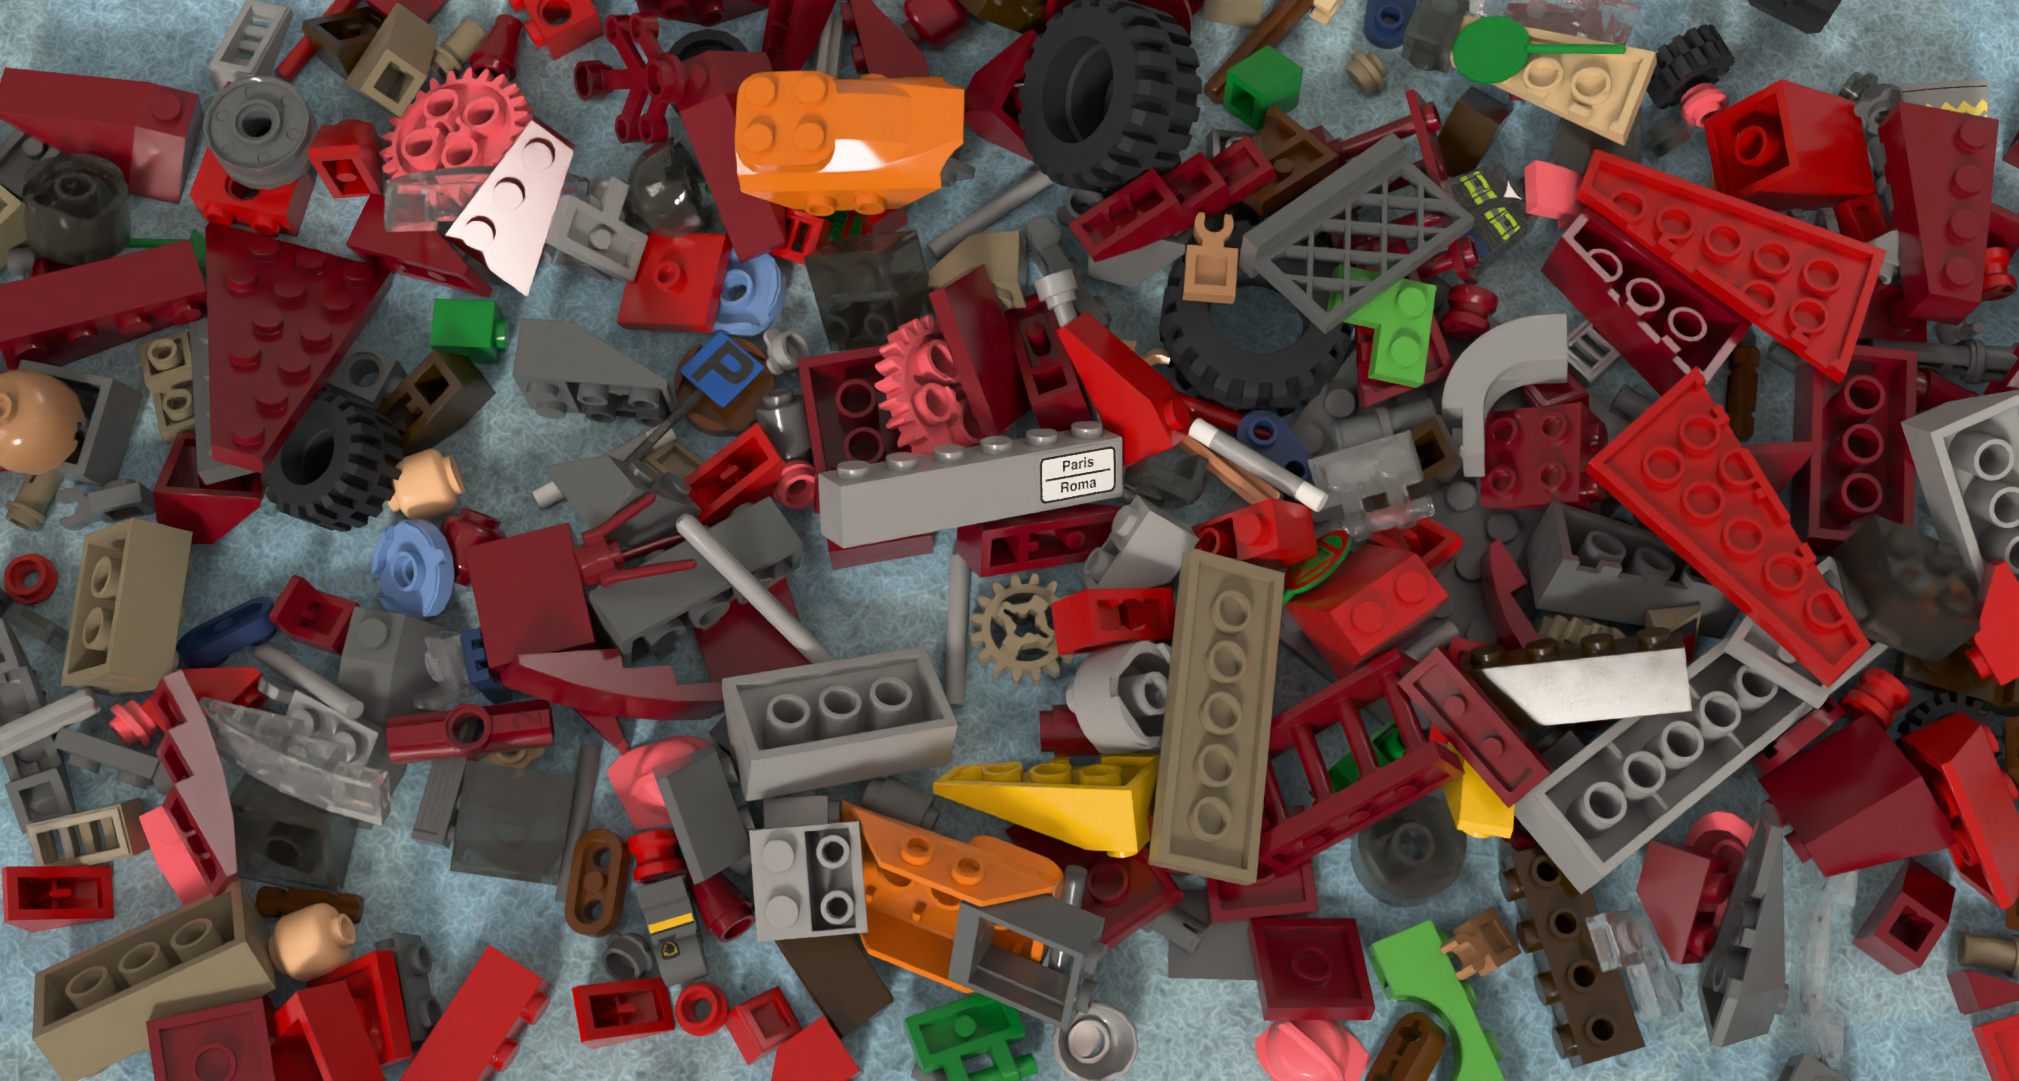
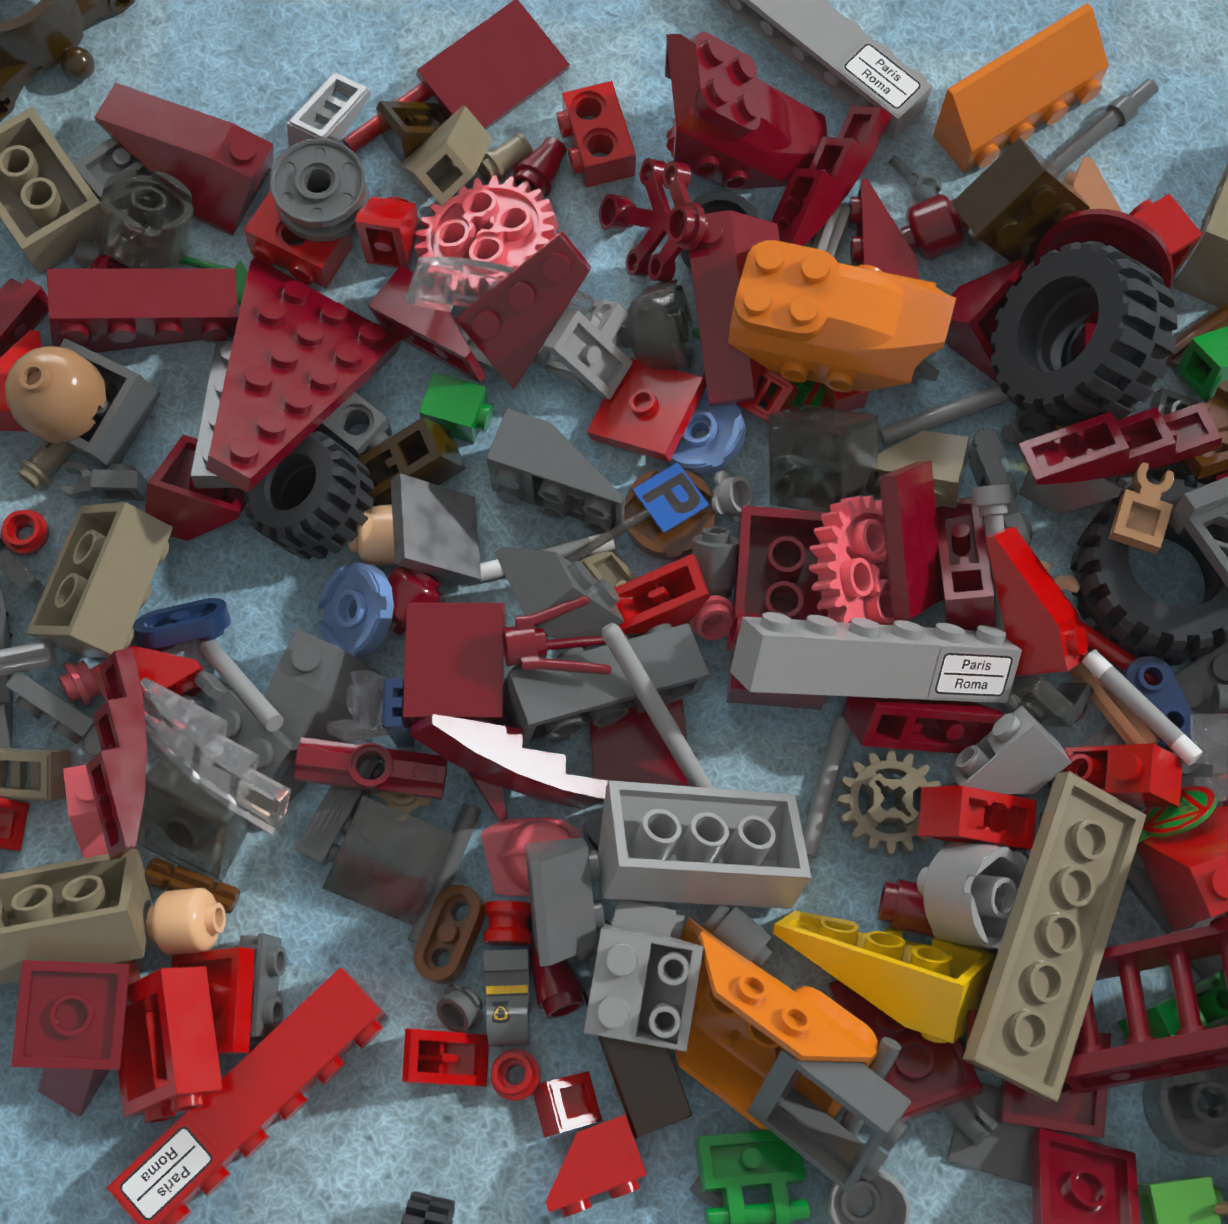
camera: 15 degrees right, 0 degrees up
(169, 378) = (187, 386): dark tan slope -> none
(313, 616) = (259, 627): dark red bracket -> none
(478, 465) = (435, 530): none -> flat silver tile

